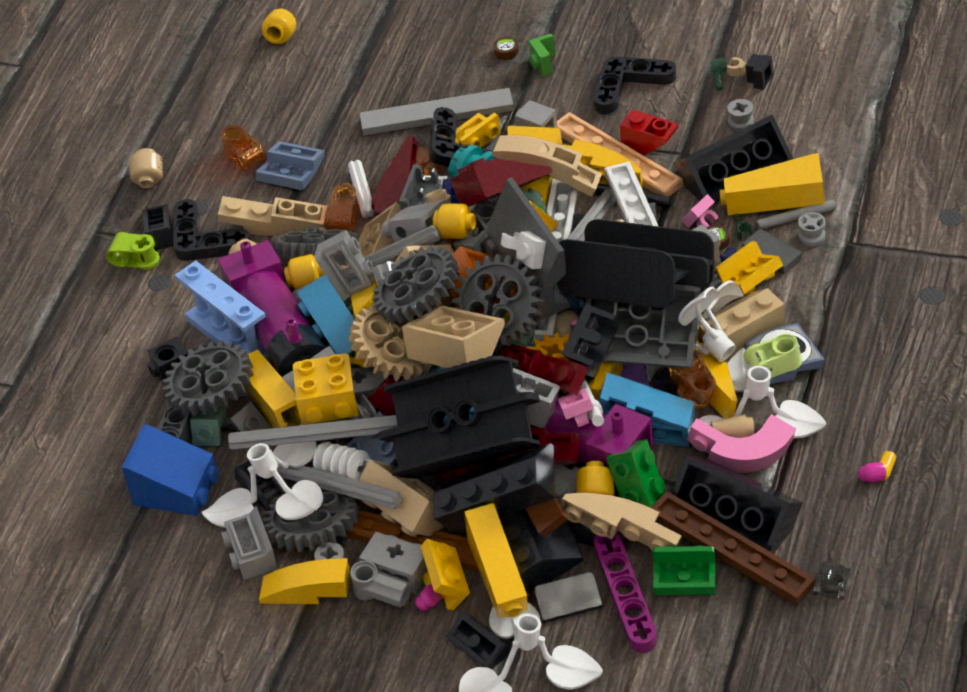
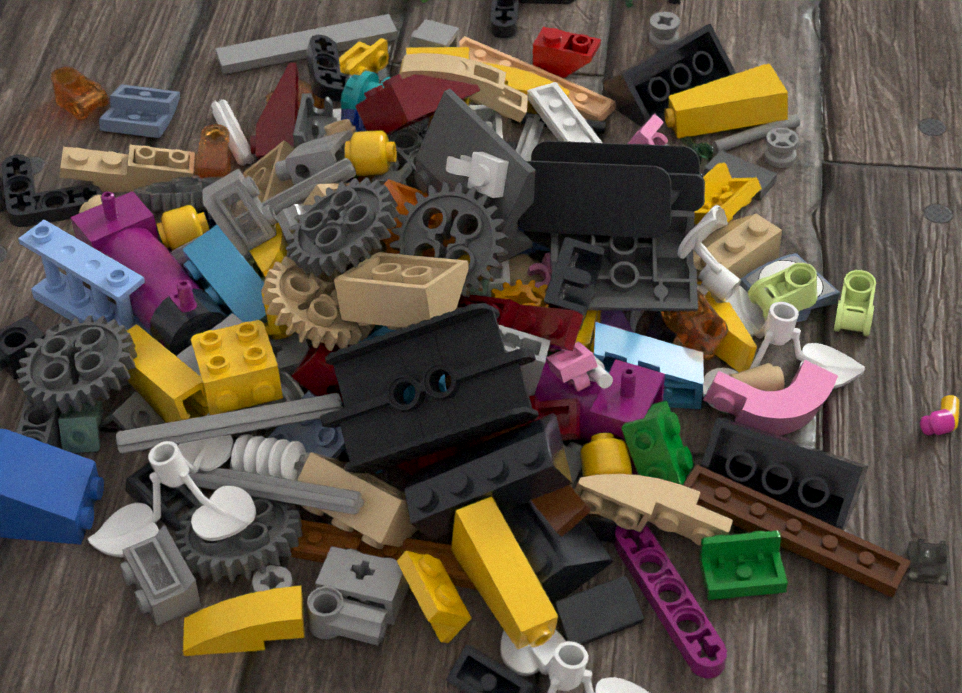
camera: 15 degrees left, 0 degrees up
(427, 597) = (416, 625): dark pink arm -> none
(833, 369) = (856, 303): none -> yellowish green piece

